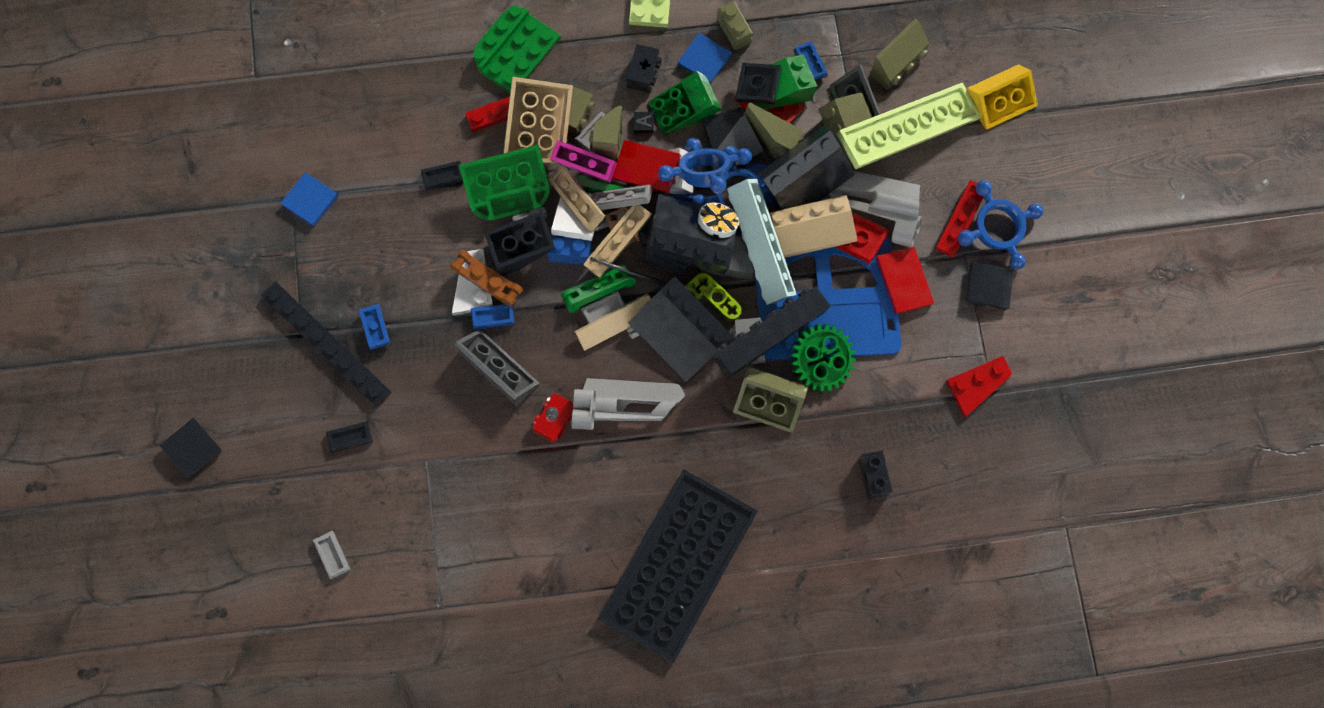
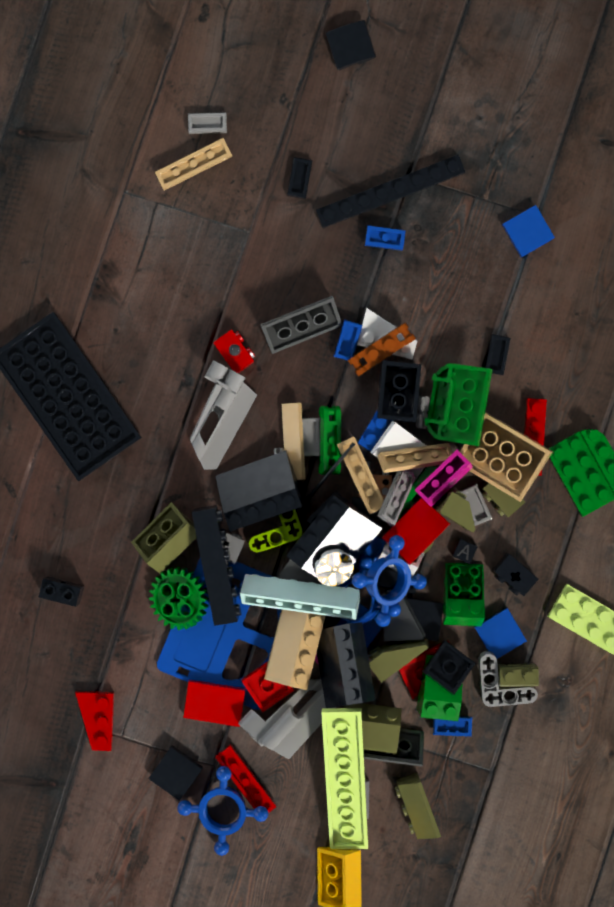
camera: 120 degrees right, 15 degrees up
(380, 548) = (193, 164): none -> tan plate
(756, 41) = (494, 688): none -> light grey beam

